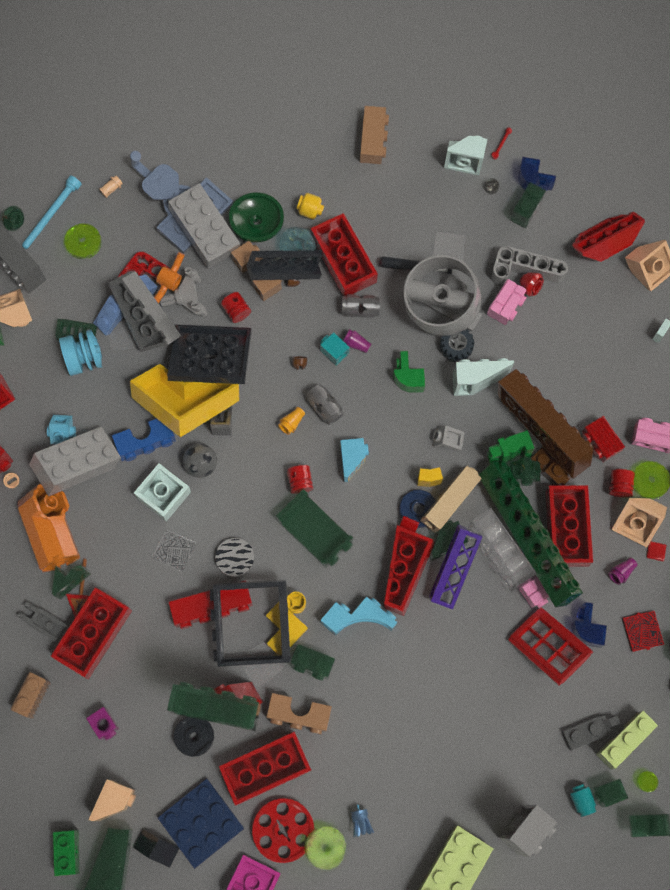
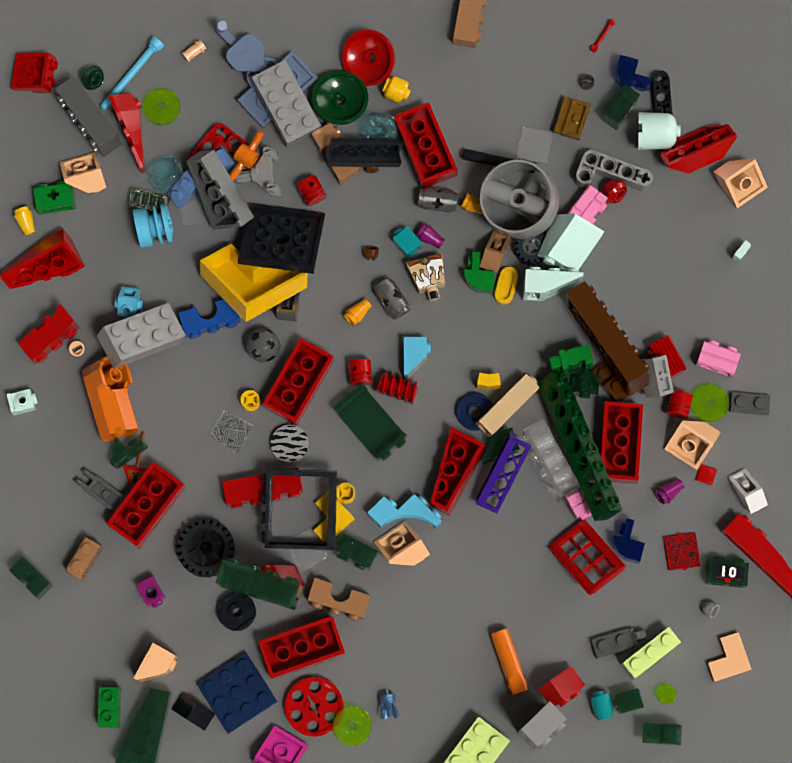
camera: 10 degrees right, 5 degrees up
(52, 254) = (130, 120): none -> red wedge
(89, 302) = (165, 173): none -> clear light blue hair
(145, 661) = (202, 533): none -> black wheel
(162, 492) = (224, 373): light aqua slope -> none
(191, 513) = (252, 398): none -> yellow wheel
(238, 494) = (298, 382): none -> red brick
(270, 176) = (358, 53): none -> red dish
(339, 490) = (397, 387): none -> red piece
(358, 378) = (428, 275): none -> torso
(359, 651) = (402, 546): none -> light nougat slope
(396, 307) = (472, 203): none -> light orange cone
(409, 524) = (463, 426): red piece -> none
(422, 350) = (495, 252): none -> medium nougat slope
(436, 383) = (506, 285): none -> yellow tile
(448, 438) = (512, 343): light grey bracket -> none
(466, 155) = (562, 47): light aqua slope -> none
(482, 220) = (572, 118): none -> pearl gold plate
(482, 763) = (509, 661): none -> orange piece
(495, 332) = (569, 242): none -> light aqua slope
(541, 785) = (561, 687): none -> red brick
(562, 202) = (656, 85): none -> black beam
(566, 223) = (658, 131): none -> light aqua cylinder
(601, 459) = (660, 379): none -> light grey hinge

